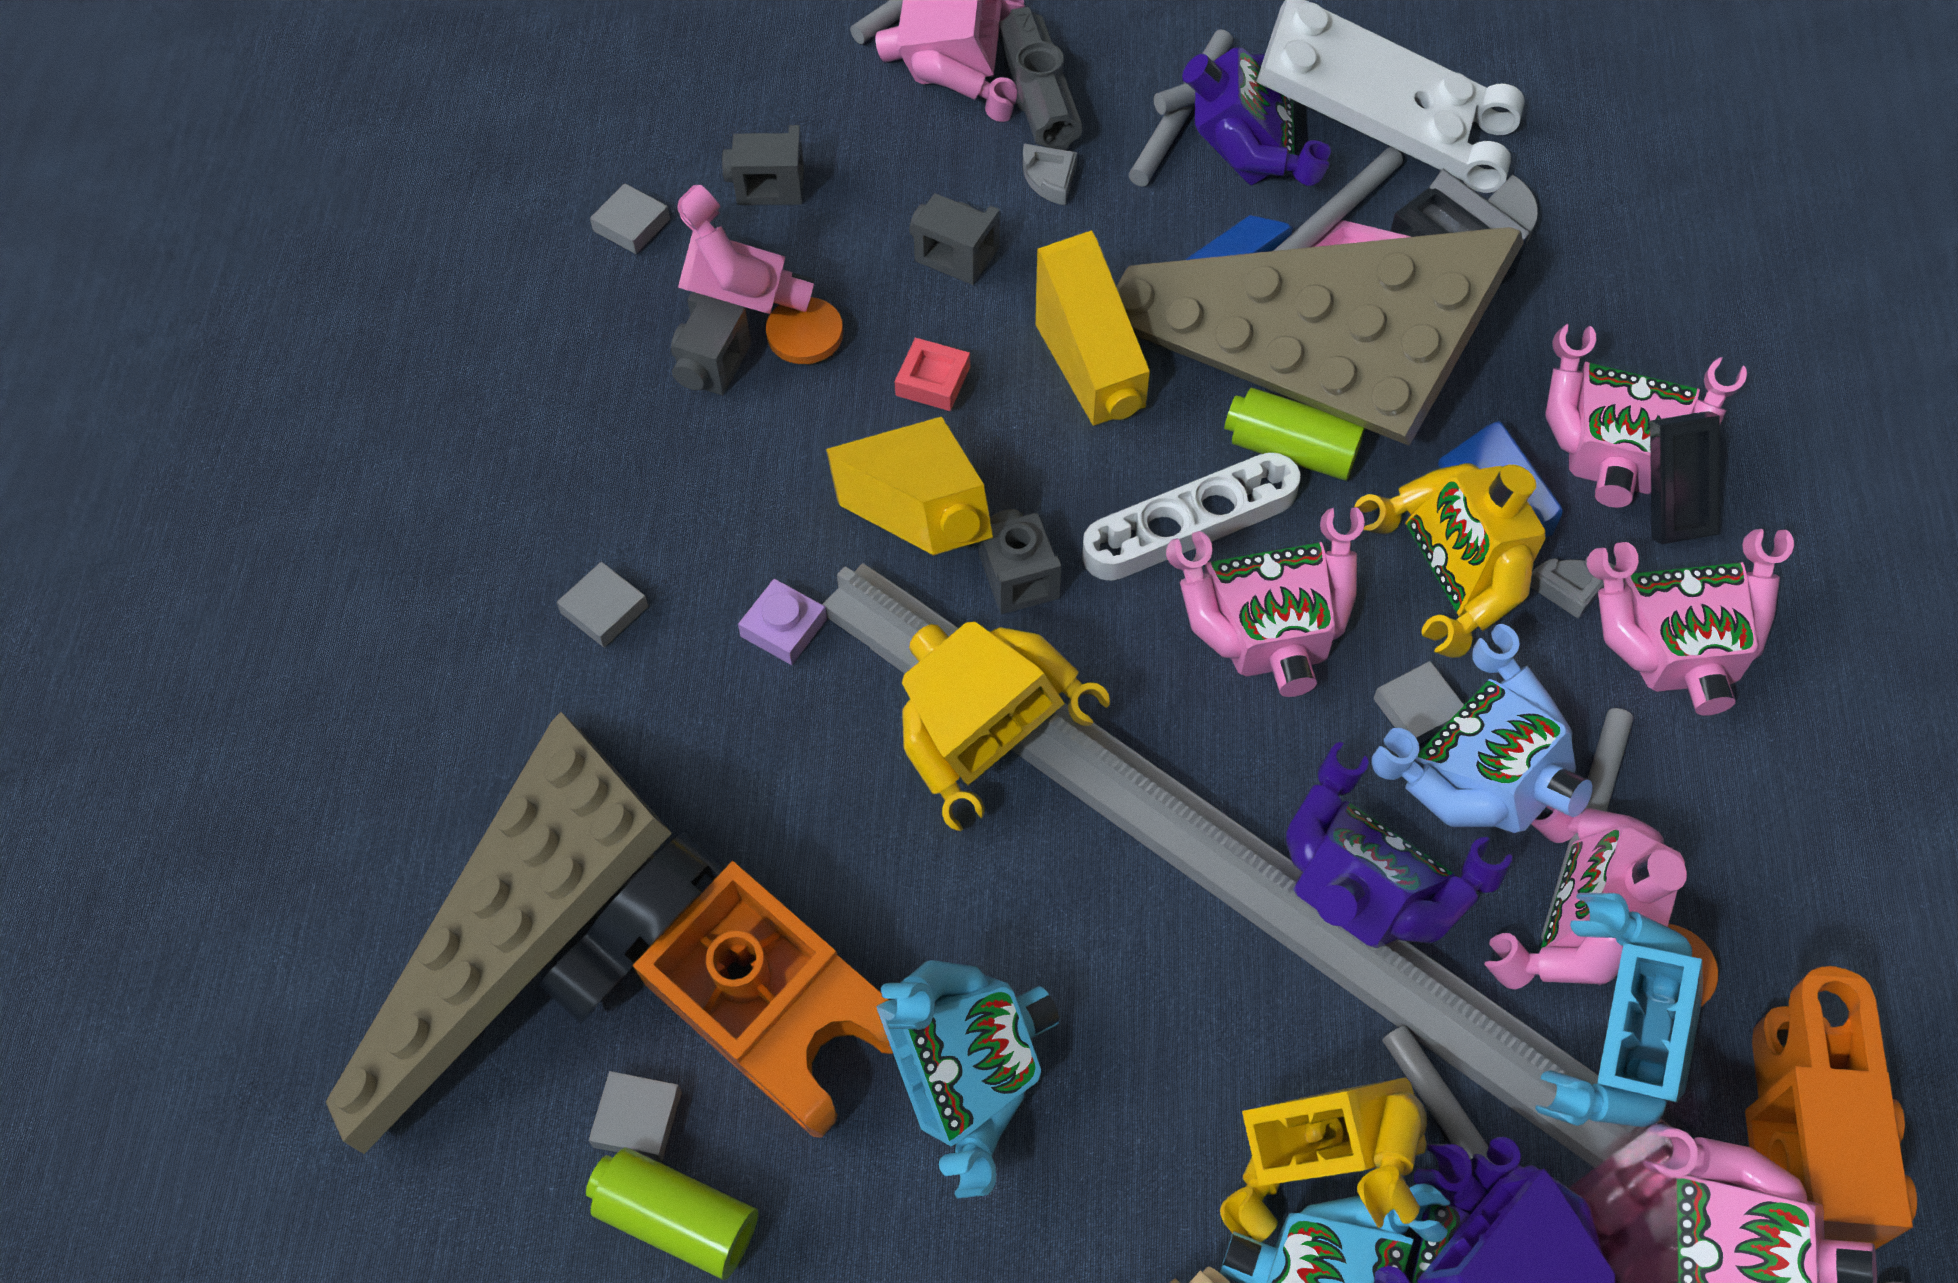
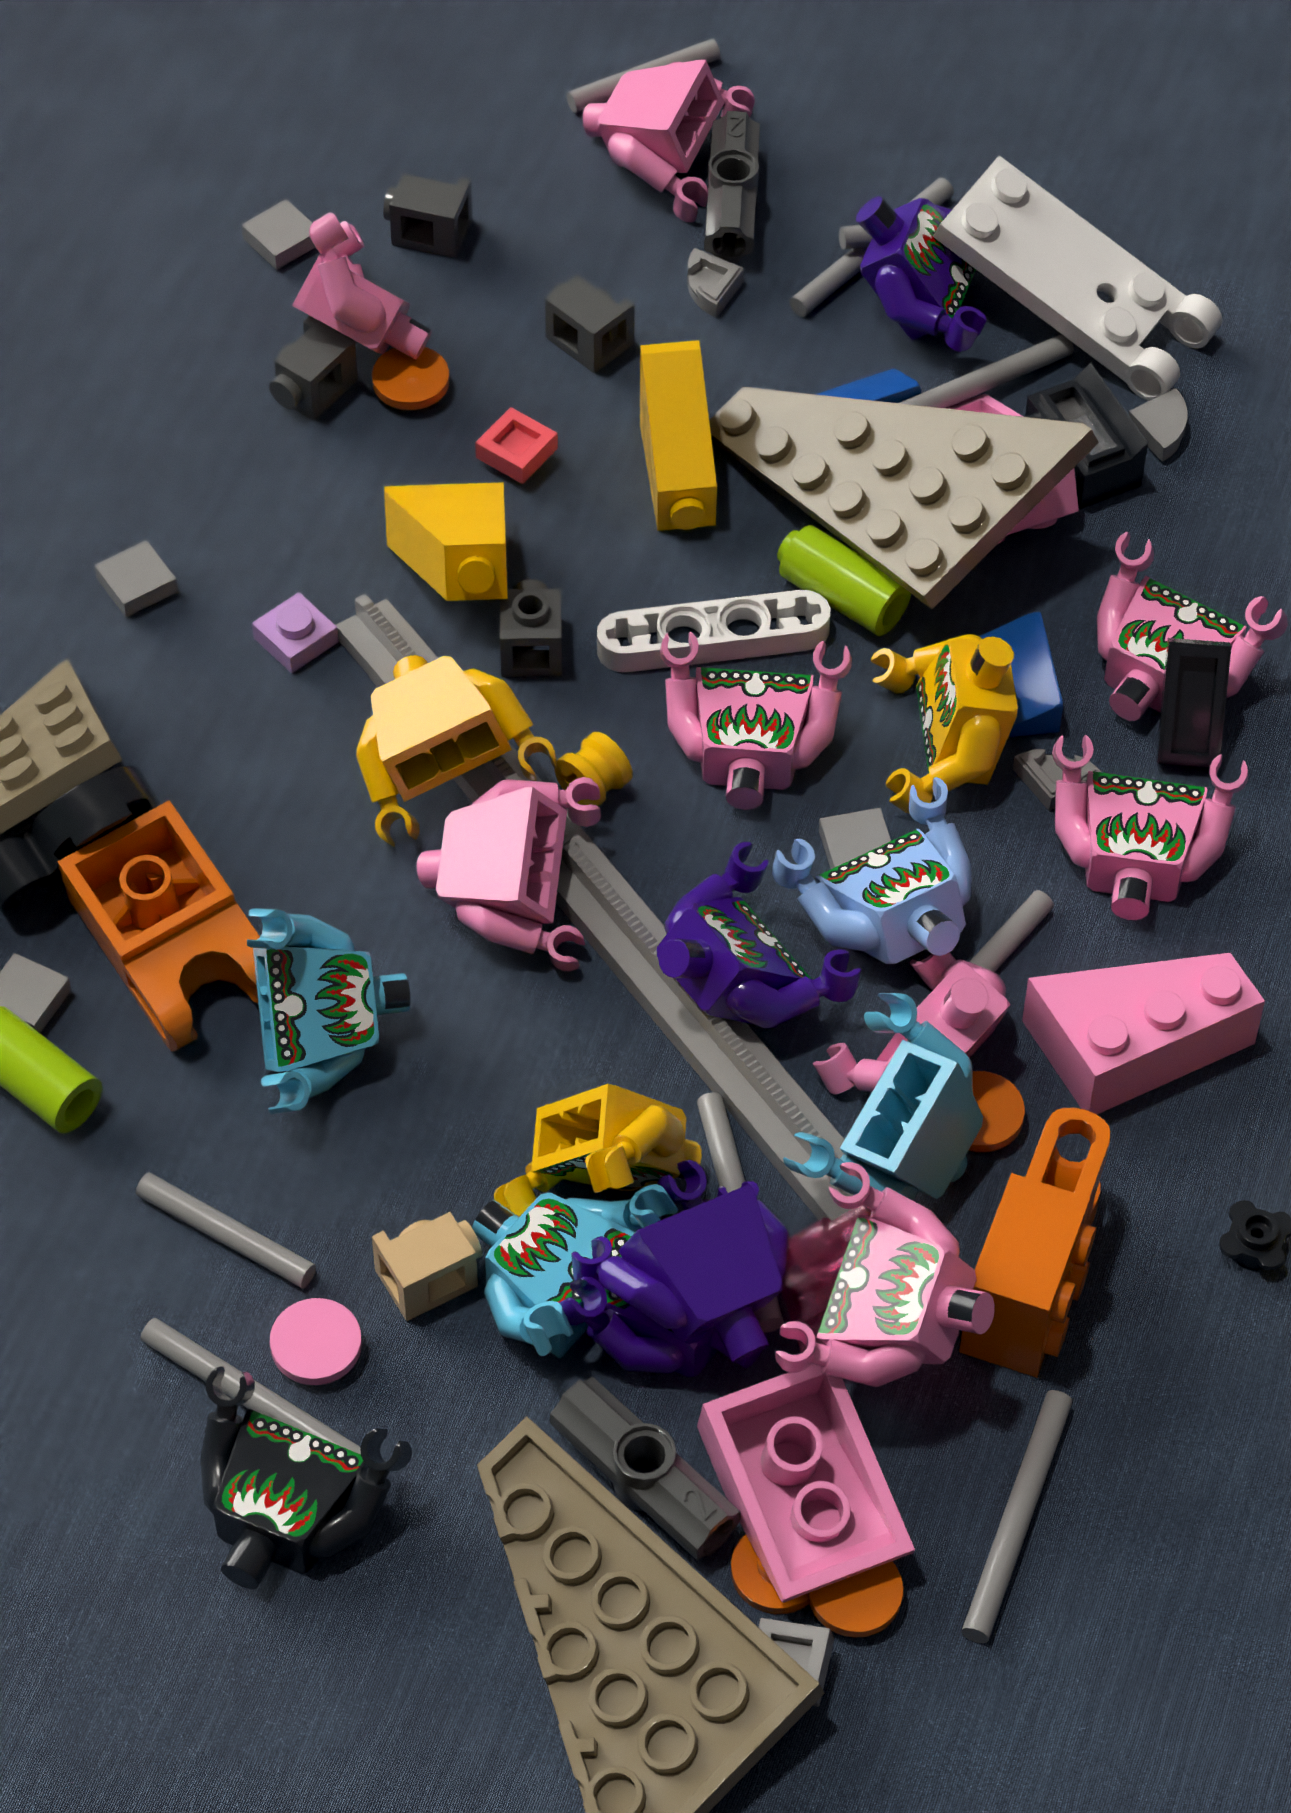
camera: 15 degrees right, 5 degrees down
(1098, 827) = (505, 862): none -> bright pink torso
(1139, 696) = (598, 760): none -> yellow wheel
(1784, 833) = (1140, 1024): none -> bright pink wedge

